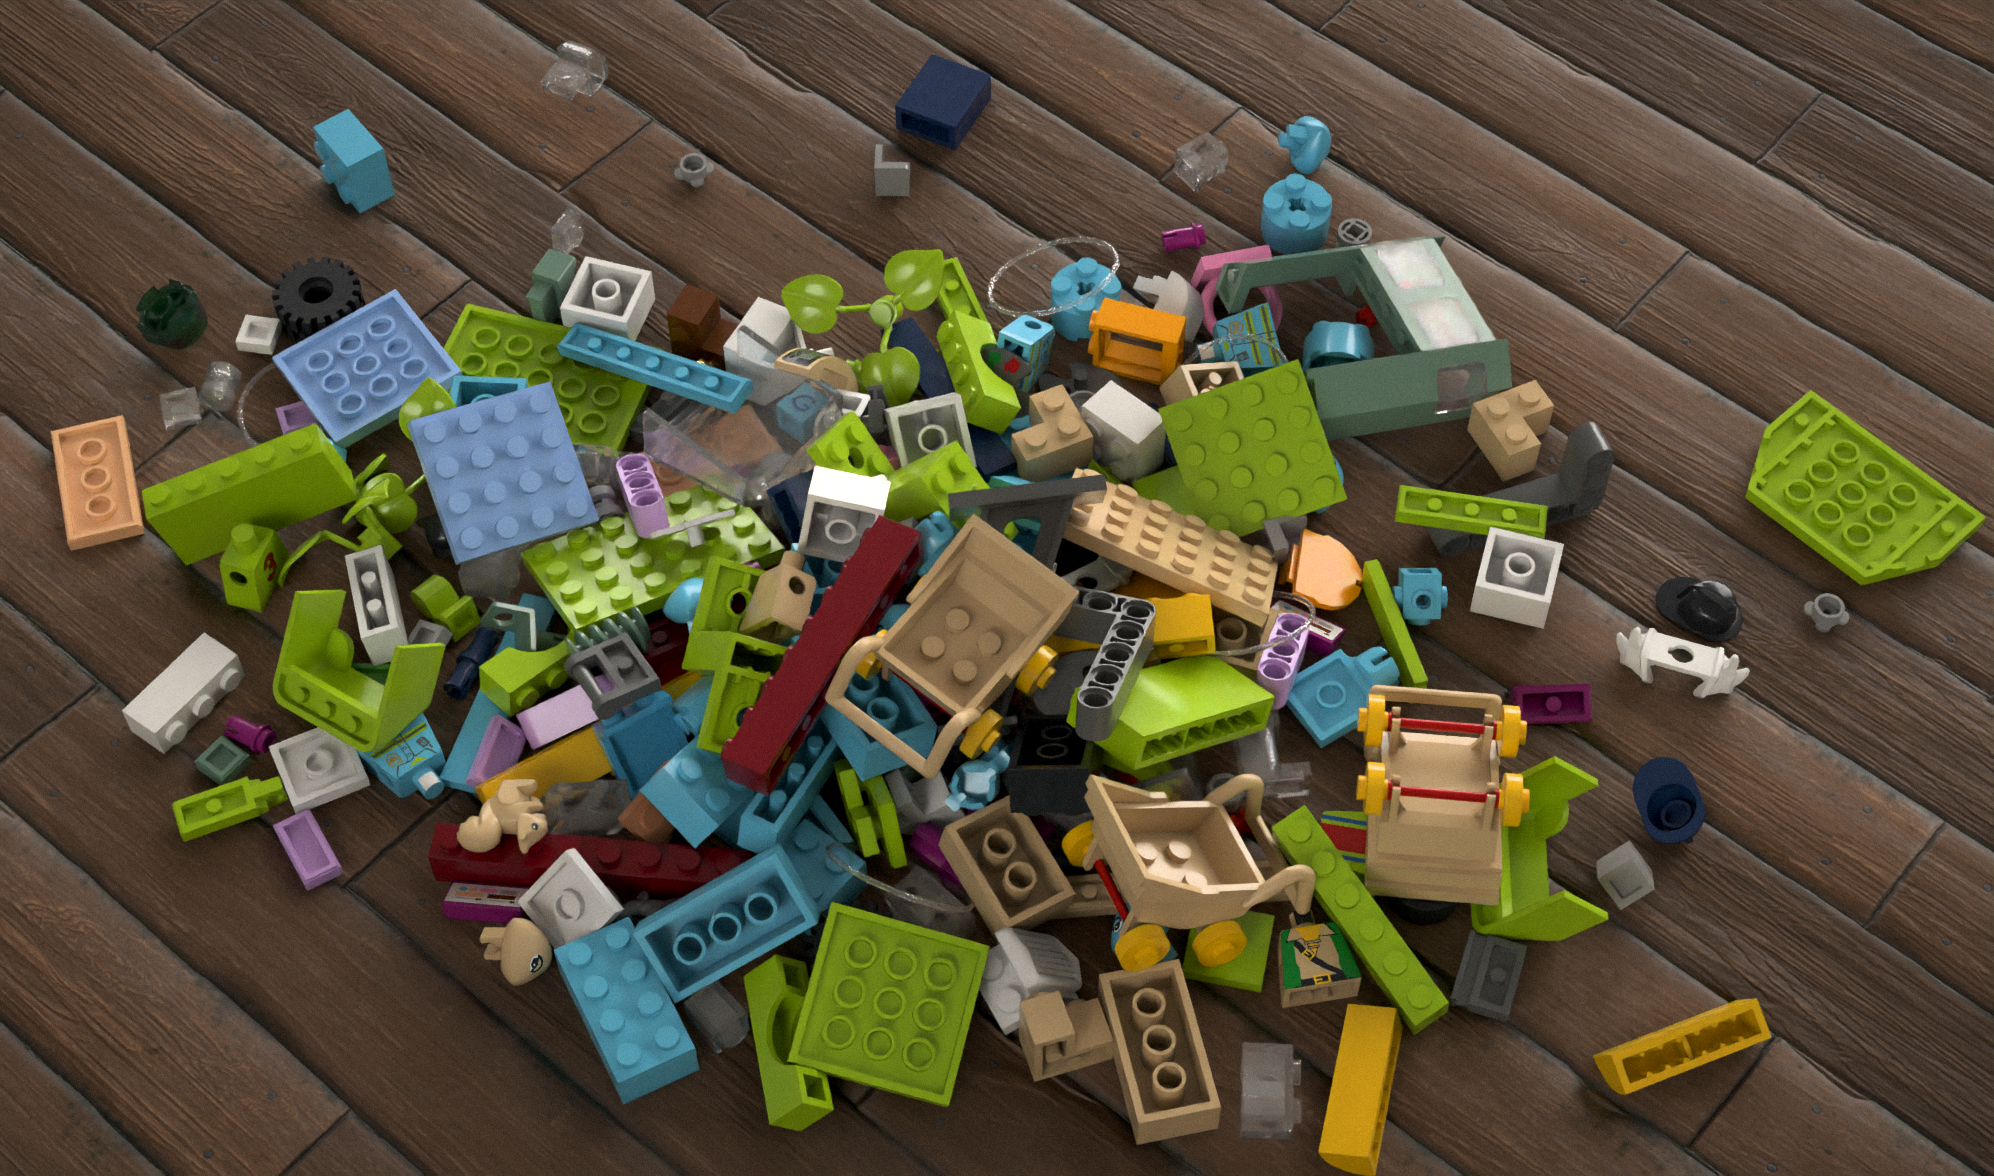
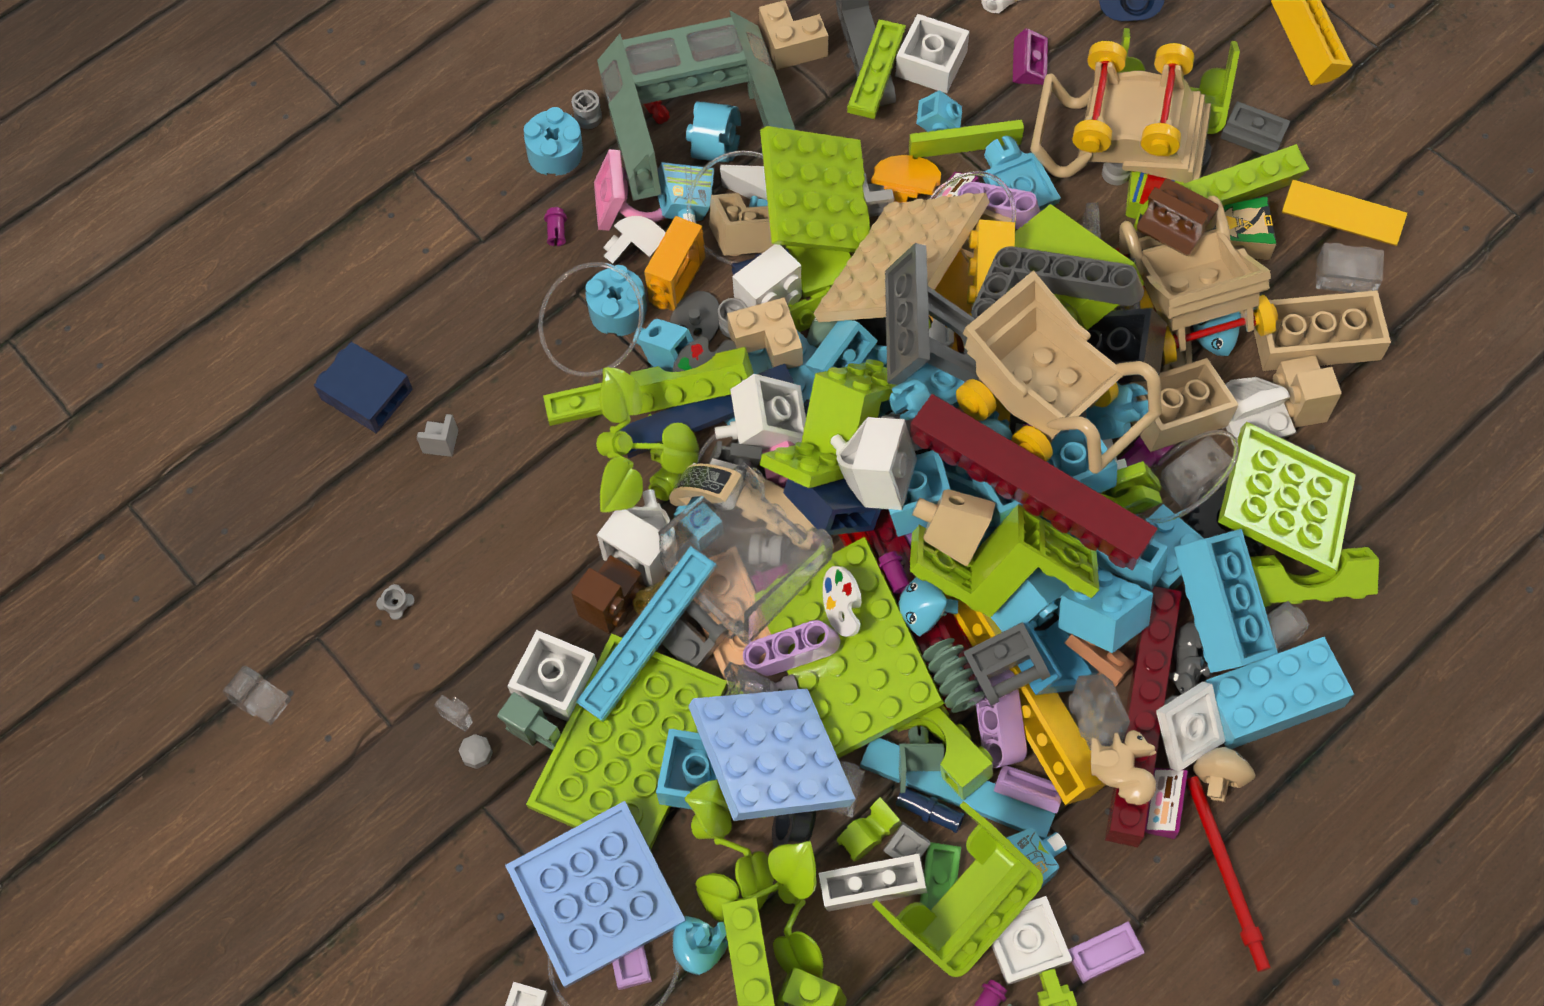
camera: 80 degrees left, 10 degrees up
(311, 280) = (513, 963): black tyre -> none
(324, 995) = (1250, 934): none -> red bar
(353, 161) = (330, 905): medium azure brick -> none
(526, 259) = (475, 751): none -> light grey tile
(1200, 160) = (477, 201): clear brick -> none
(1267, 824) = (1176, 216): none -> reddish brown bracket
(1307, 144) = (478, 122): medium azure piece -> none
(1625, 875) = (1184, 33): light grey panel -> none

